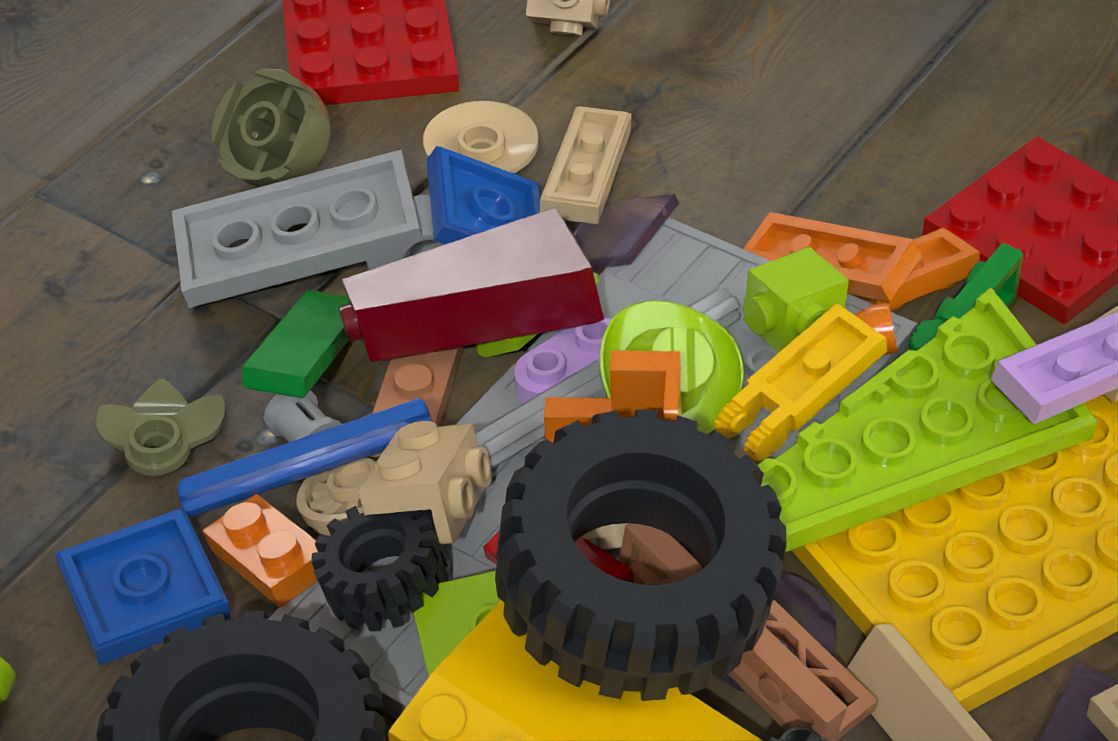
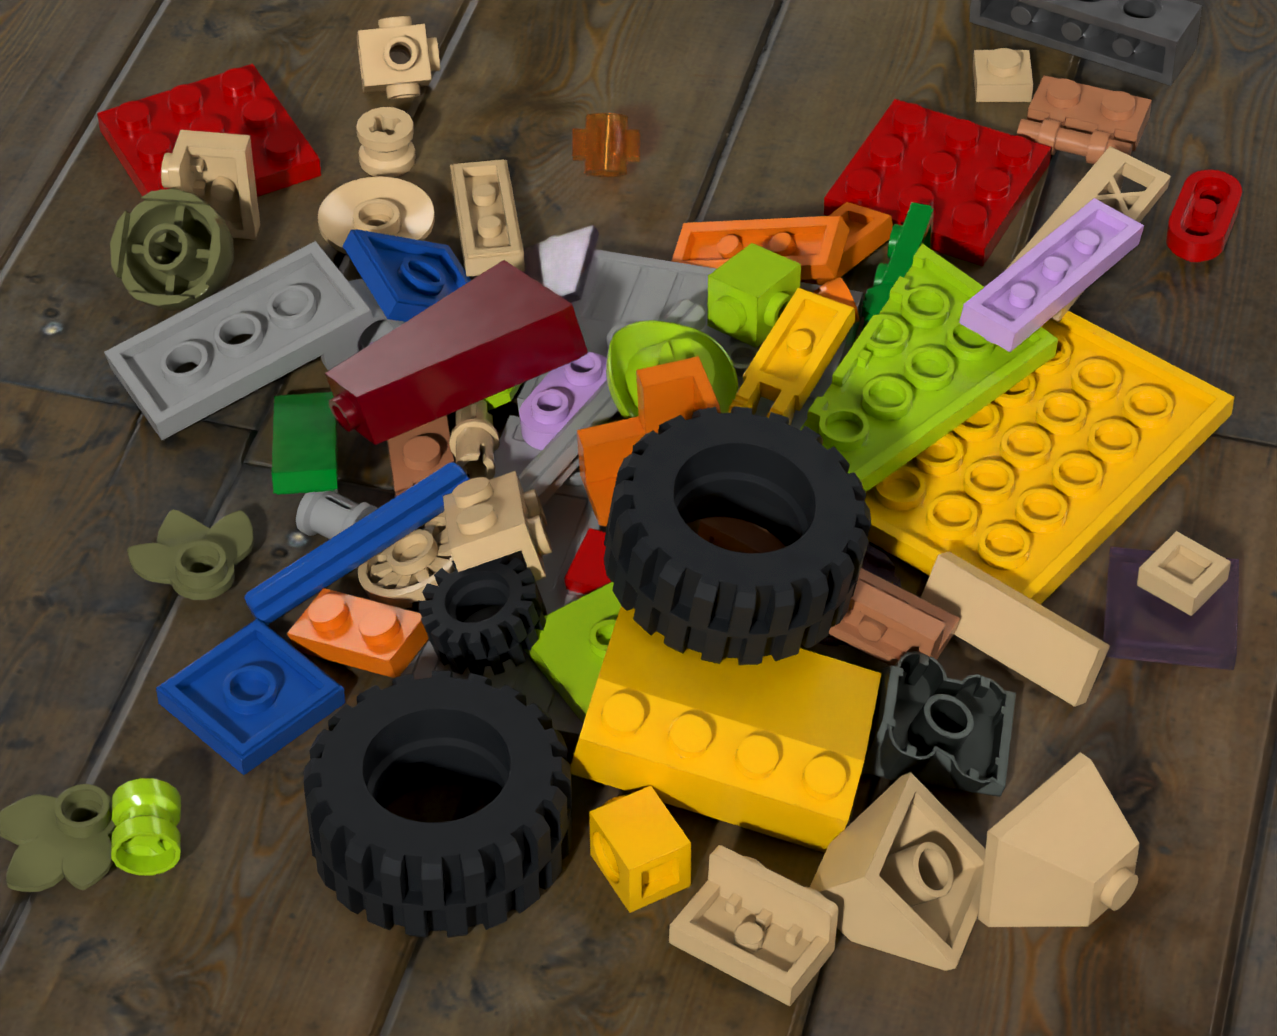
camera: 20 degrees left, 0 degrees up
(341, 70) = (219, 172): none -> tan bracket
(464, 383) = (475, 440): none -> tan axle
(525, 72) = (386, 142): none -> tan wheel
(728, 119) = (606, 145): none -> clear orange gear

